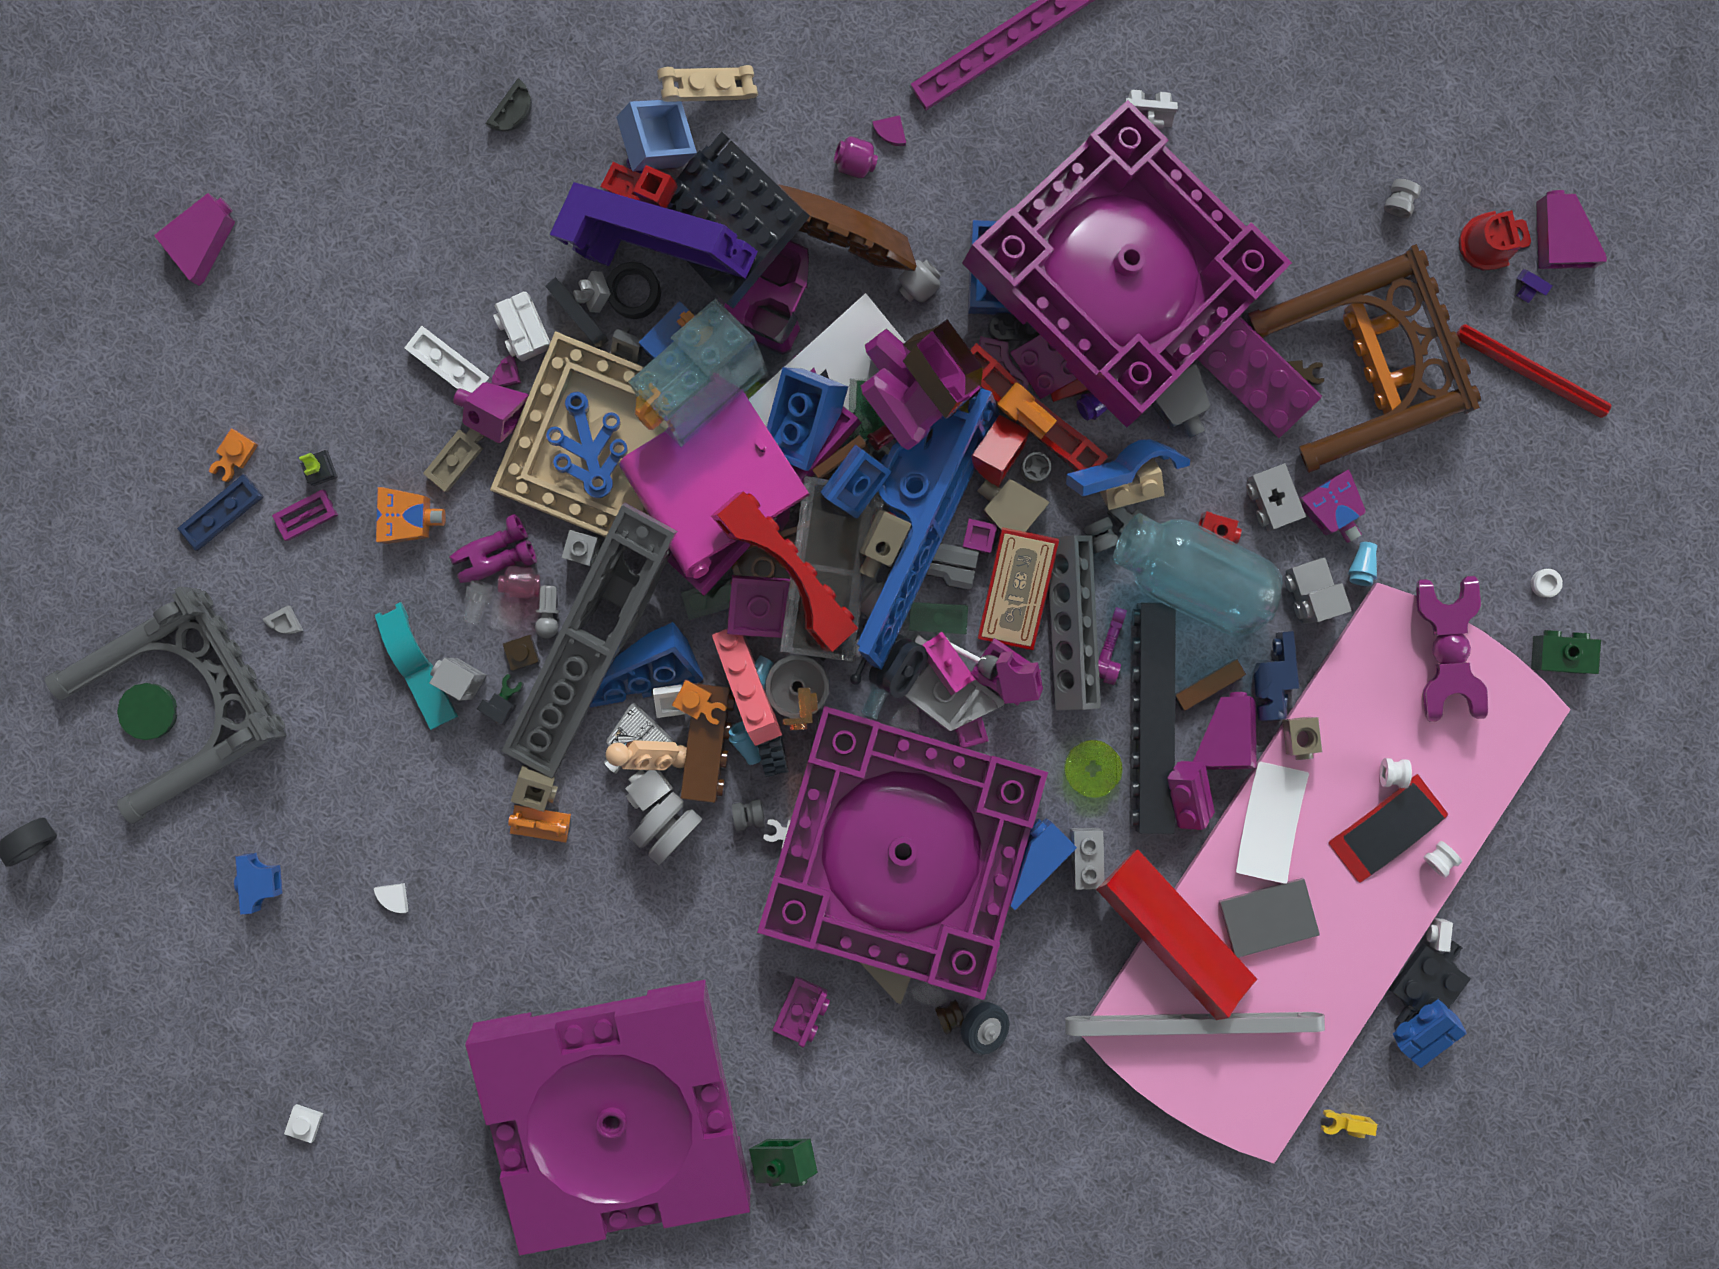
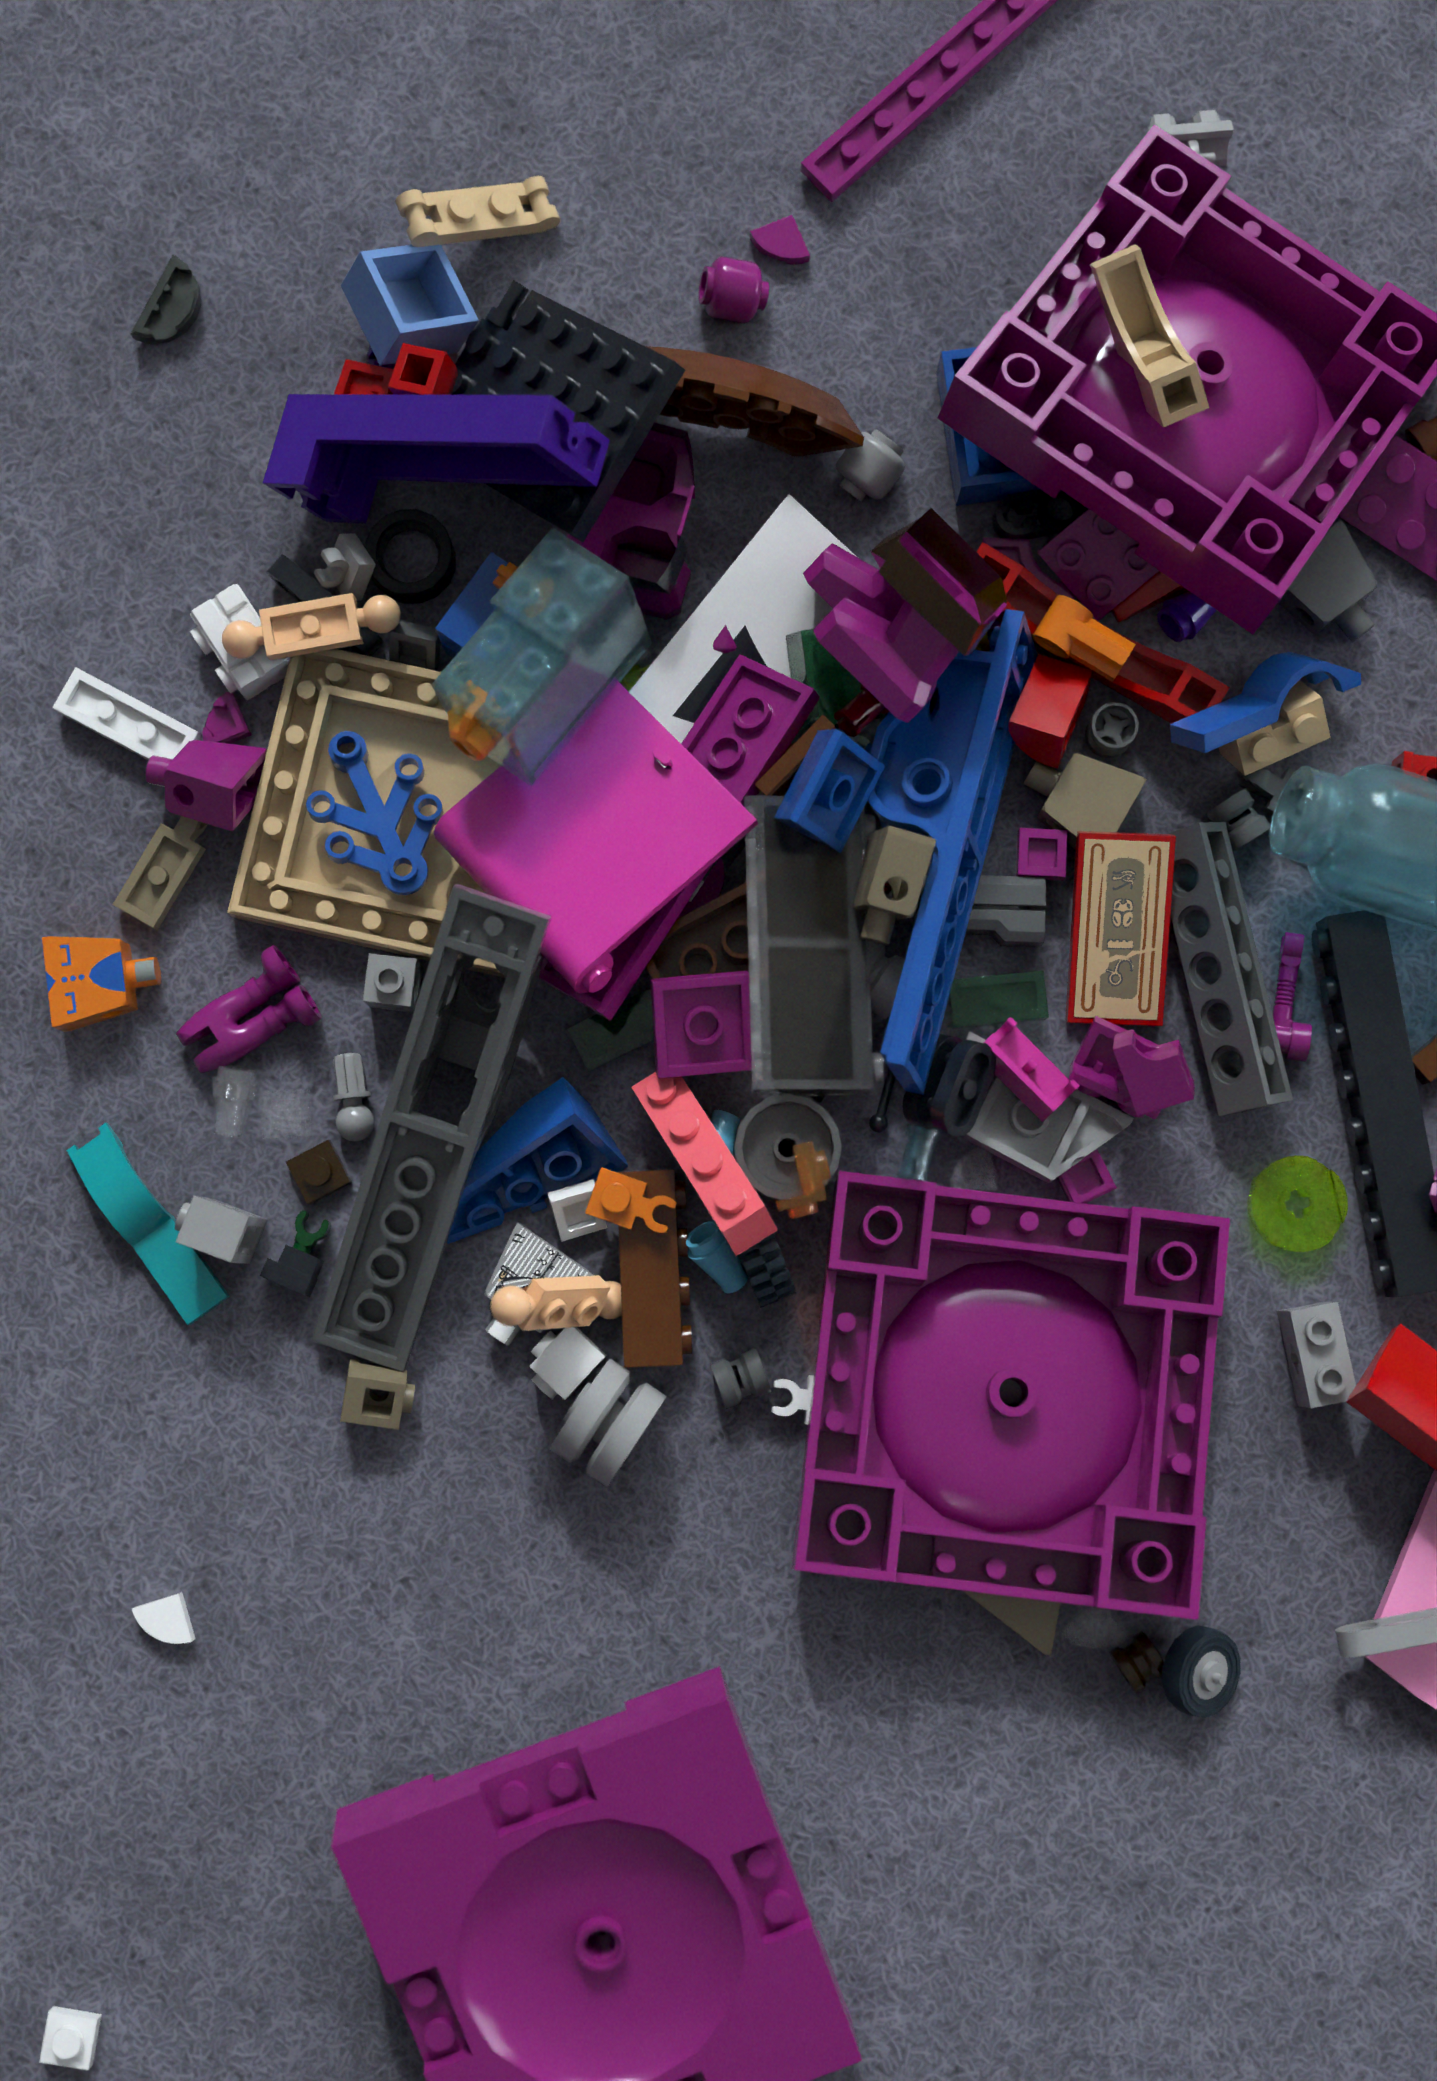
camera: 10 degrees left, 5 degrees down
(519, 584) = (299, 1059): clear pink head -> none
(539, 824) = (394, 1452): orange hinge -> none
(565, 326) = (311, 626): none -> light nougat plate
(783, 1161) = (903, 1962): dark green brick -> none
(801, 1011) = (887, 1696): magenta bracket -> none
(804, 414) = (726, 698): blue slope -> none
(823, 616) = (816, 1018): red arch -> none
(986, 664) = (1094, 1061): dark grey hinge -> none
(1043, 854) = (1248, 1356): blue slope -> none
(1094, 238) = (1146, 338): none -> tan arch

